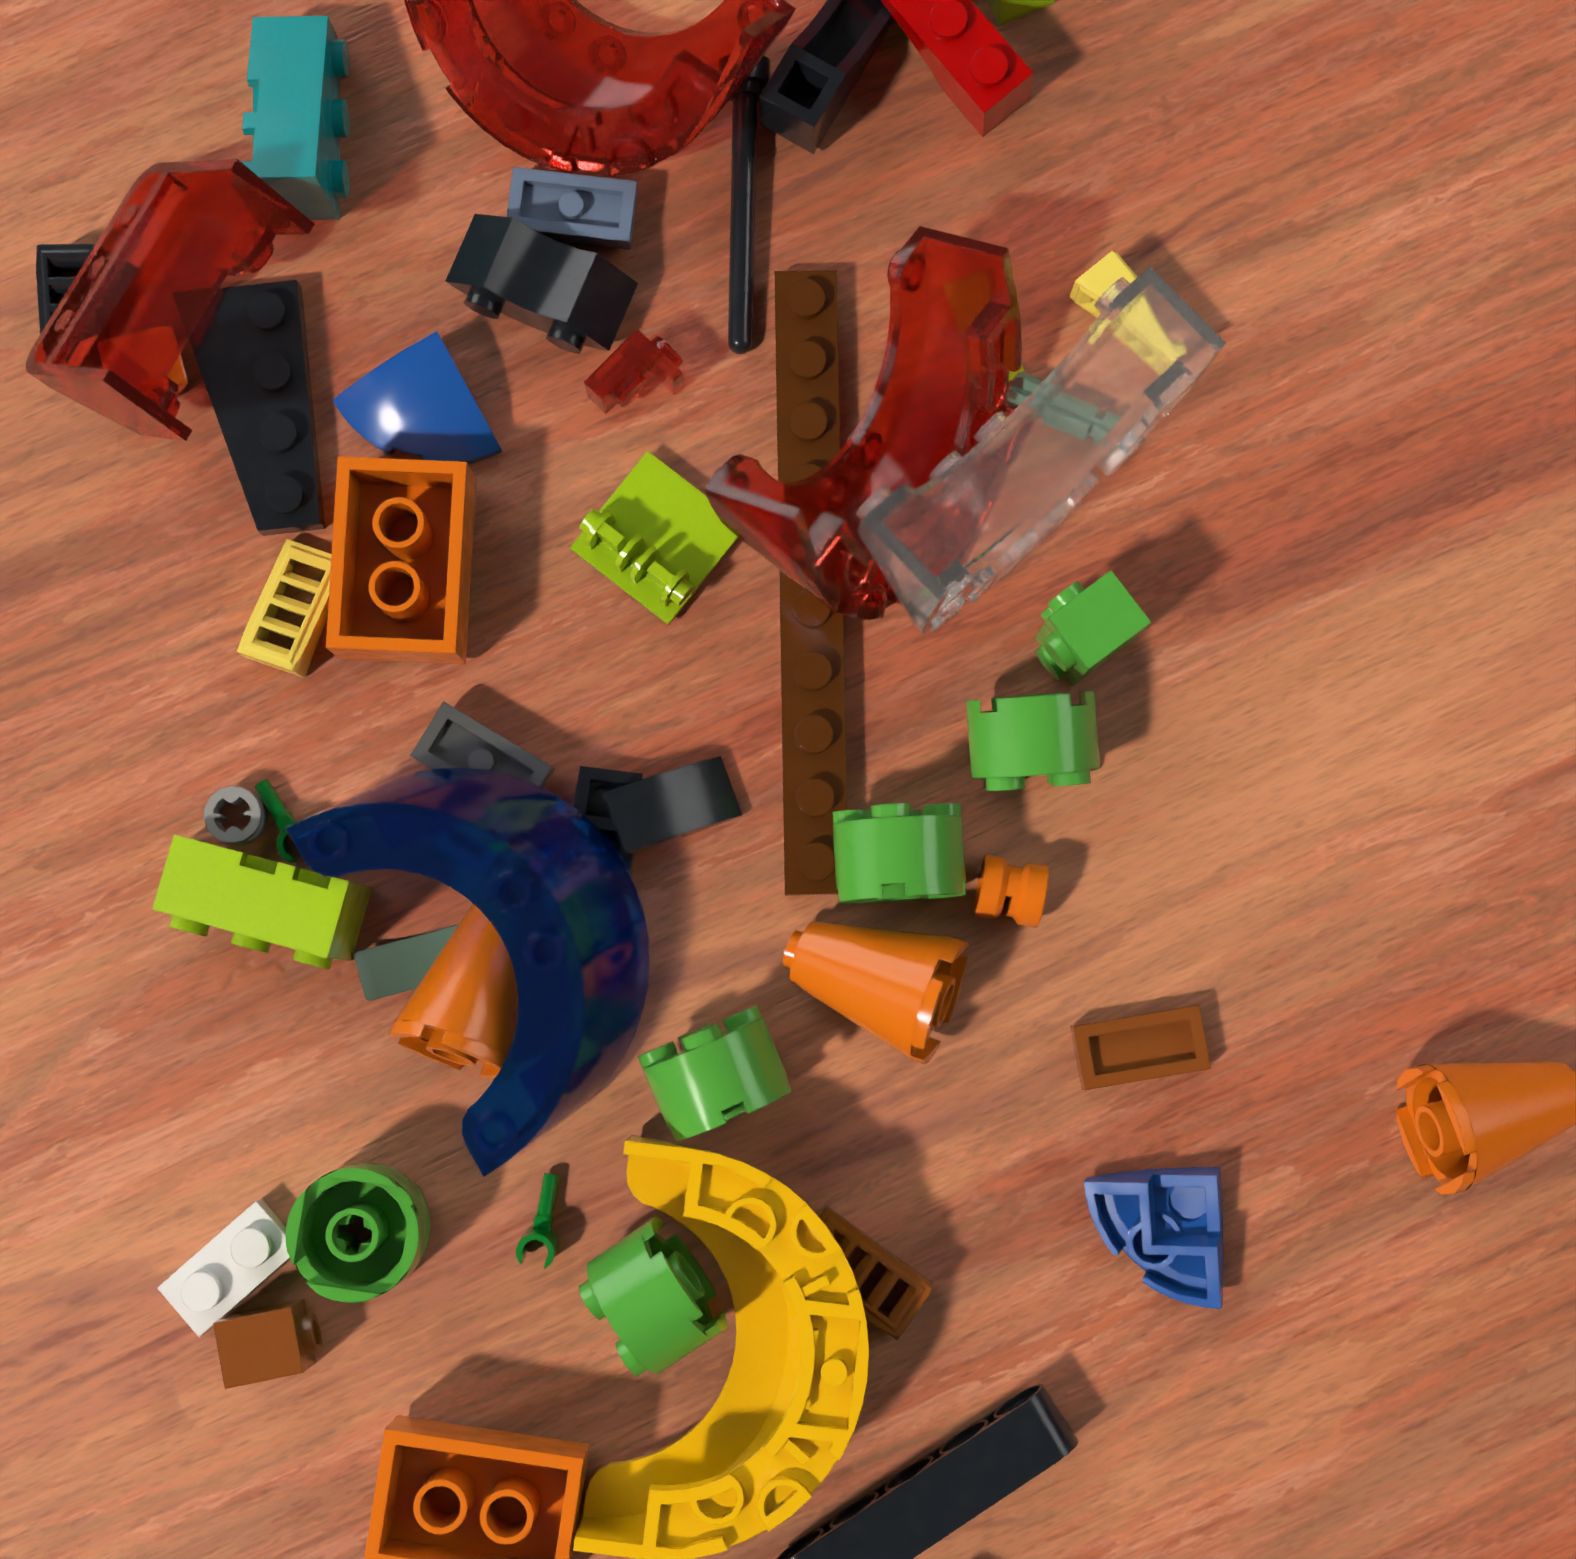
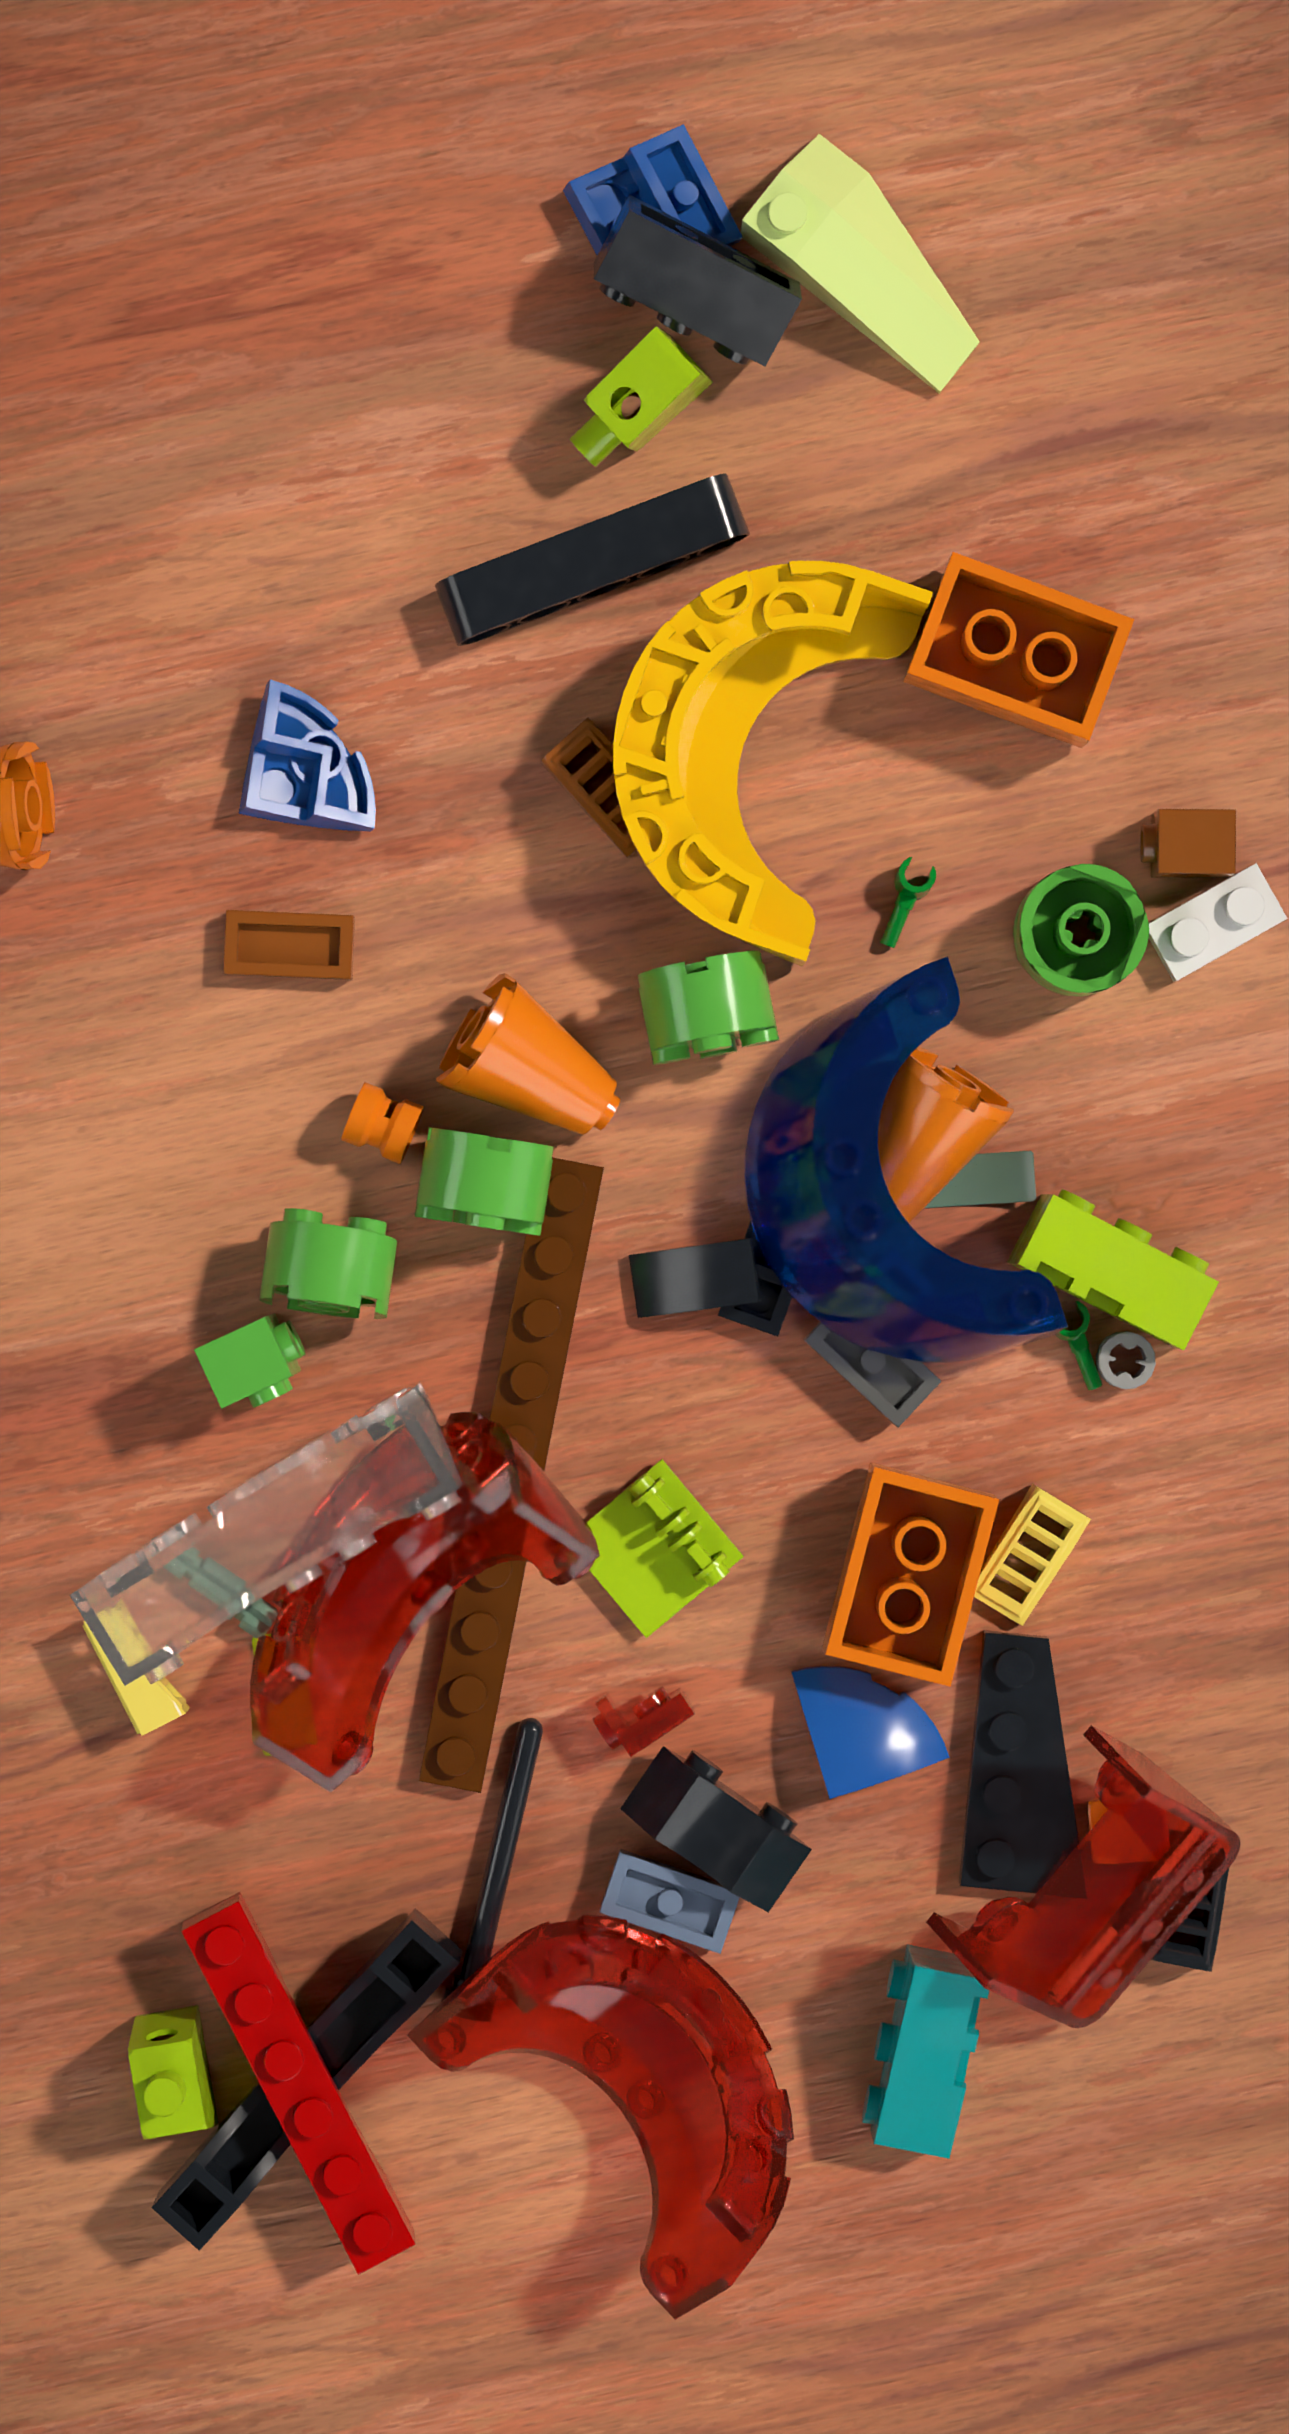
camera: 160 degrees left, 5 degrees up
(652, 1298) = (812, 807): bright green brick -> none

